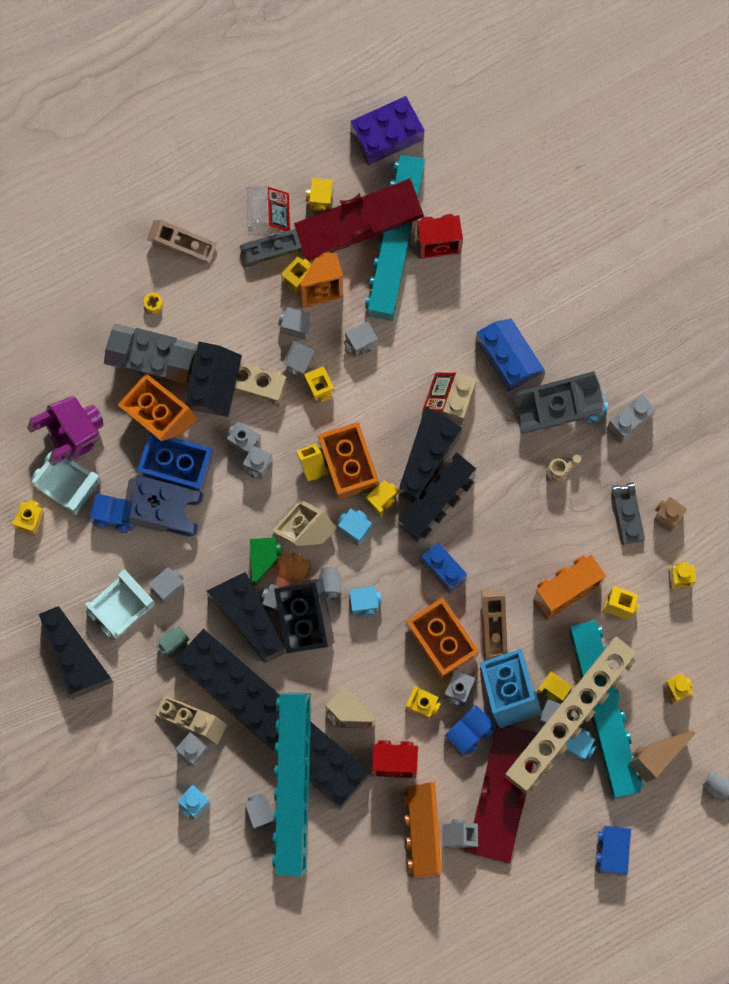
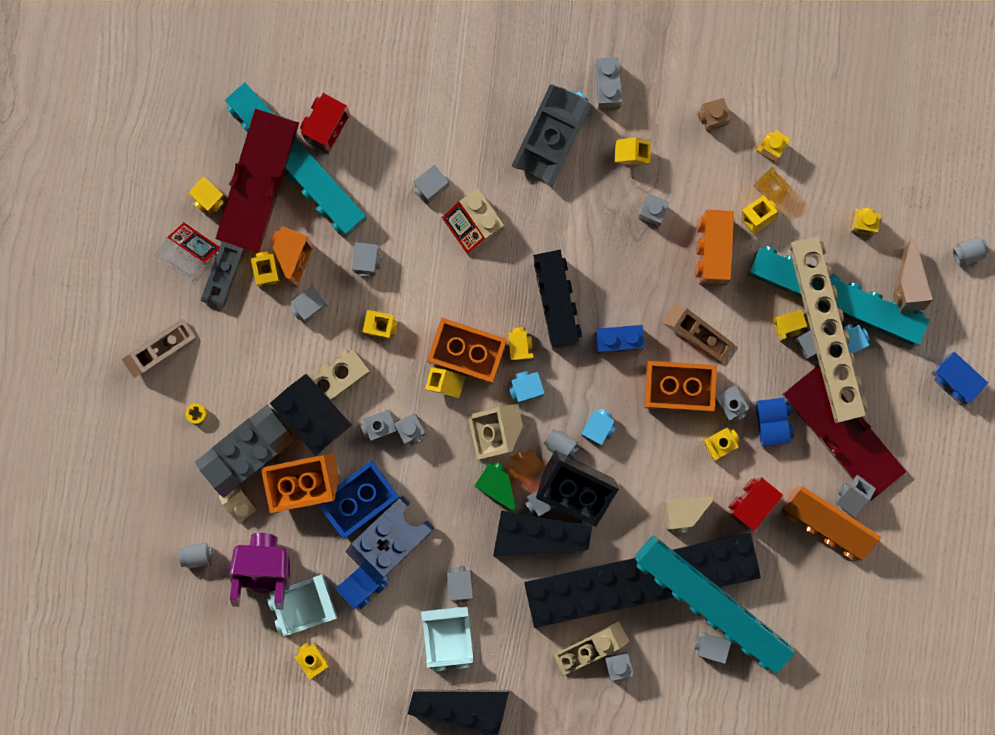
camera: 45 degrees left, 10 degrees up
(46, 377) = (196, 555): none -> light grey brick
(107, 380) = (238, 504): none -> tan bracket
(172, 642) = (513, 616): sand green brick -> none
(193, 802) = (664, 697): medium azure brick -> none
(298, 358) = (342, 325): light grey brick -> none
(387, 130) = (191, 94): dark purple brick -> none
(429, 451) = (507, 272): black wedge -> none
(453, 345) = (430, 184): none -> light grey brick
(508, 353) = (472, 142): blue slope -> none
(510, 688) = (763, 361): dark azure slope -> none
(558, 469) = (607, 178): tan piece -> none
(562, 521) = (653, 210): none -> light grey brick
(593, 473) = (628, 149): none -> yellow brick
(628, 514) = (686, 148): dark grey plate -> none
(653, 589) = (763, 185): none -> clear yellow brick

